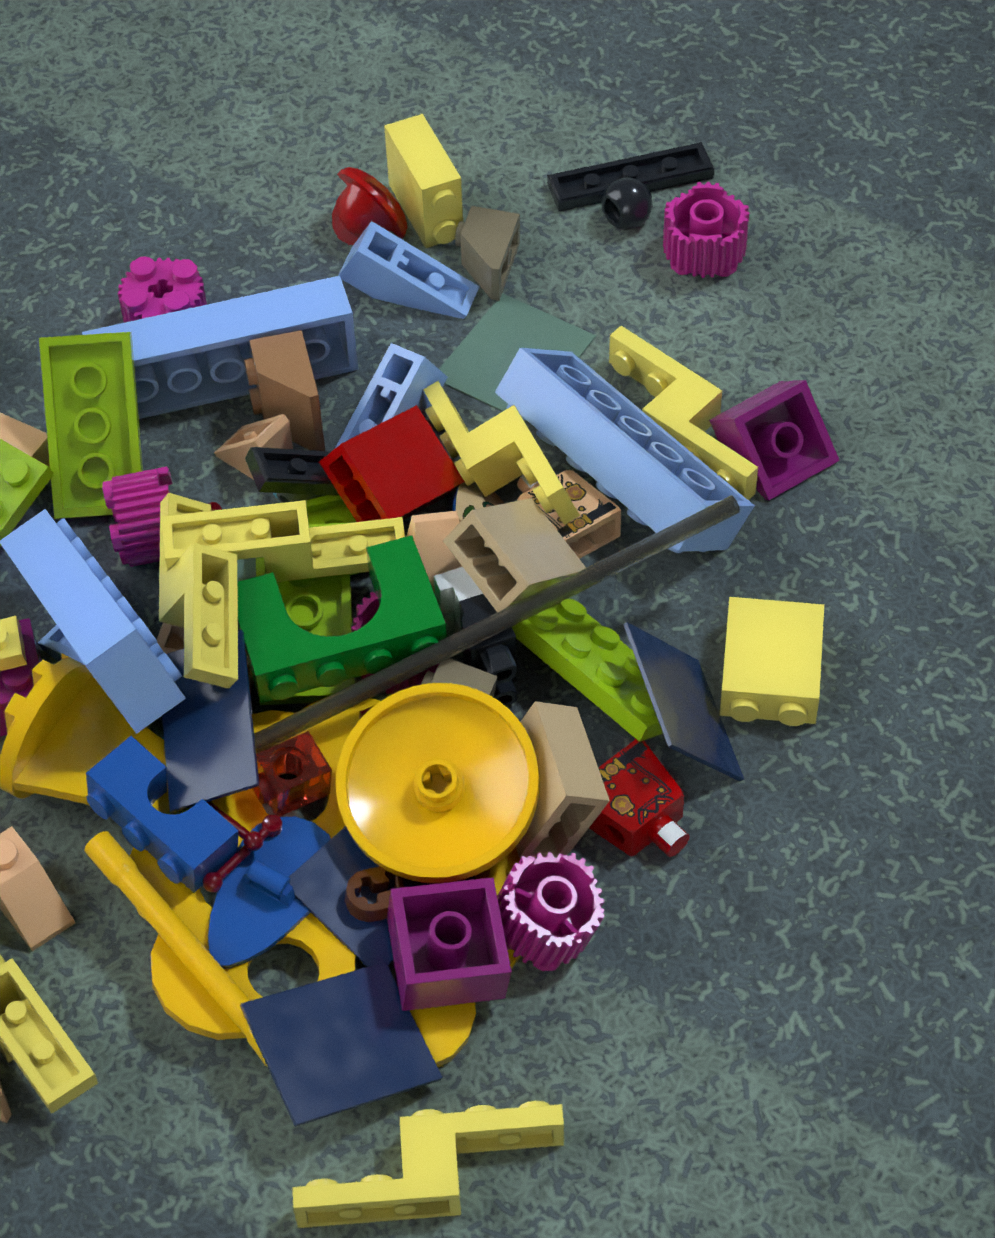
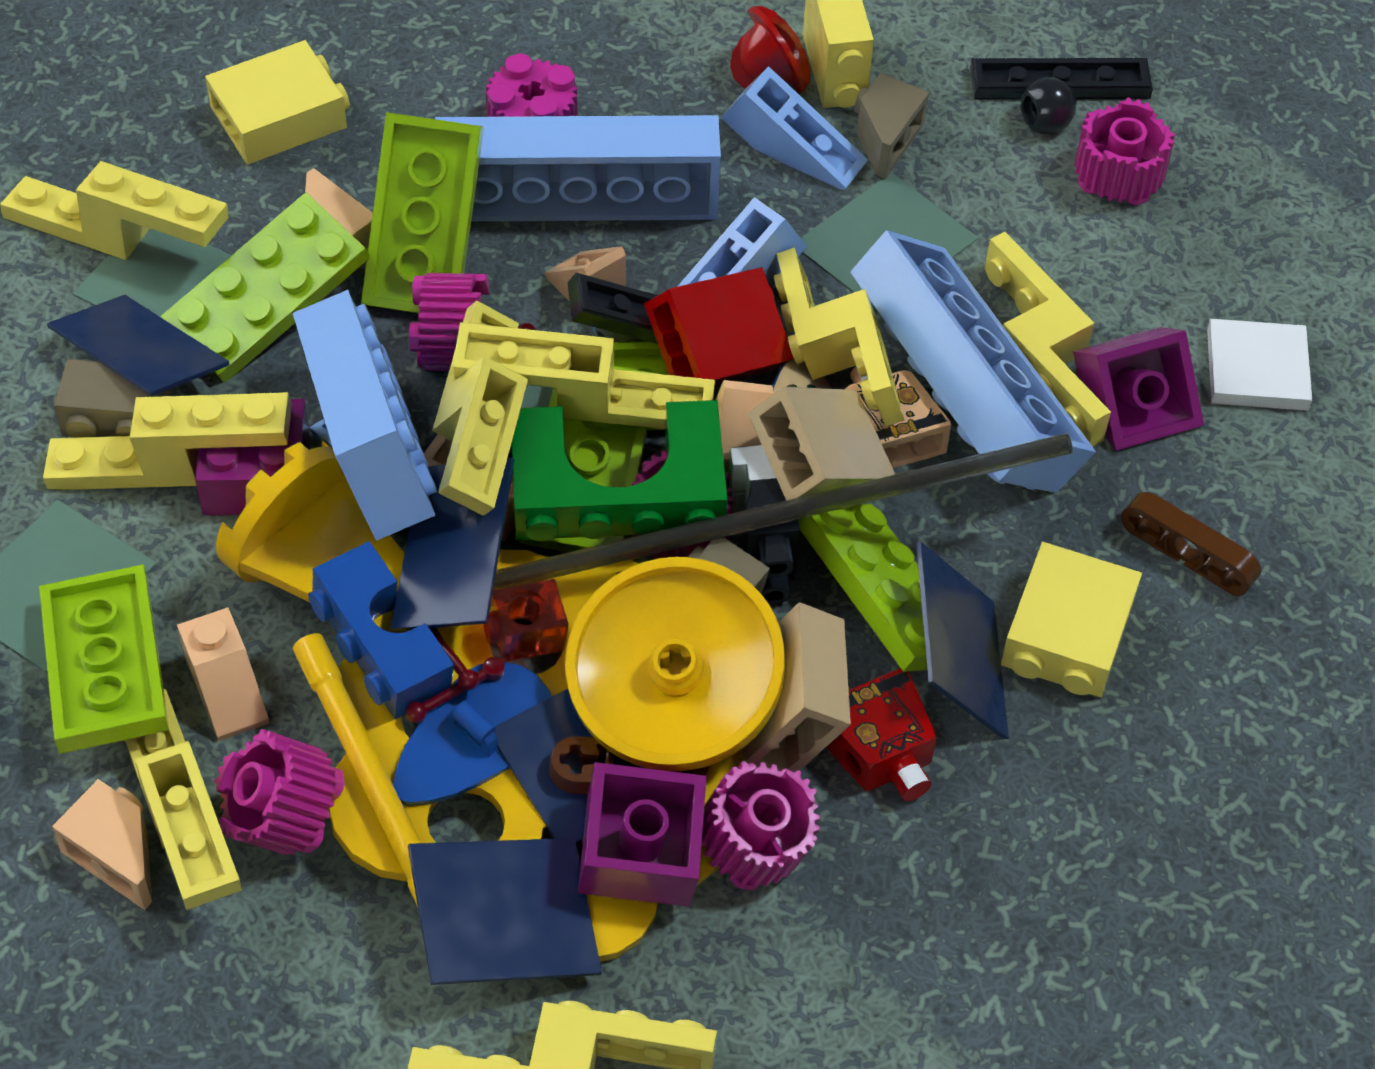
camera: 10 degrees right, 0 degrees up
(105, 986) = (277, 793): none -> dark pink brick
(286, 386) = (633, 218): medium nougat slope -> none
(873, 395) = (1259, 364): none -> white tile
(883, 578) = (1214, 559): none -> reddish brown beam

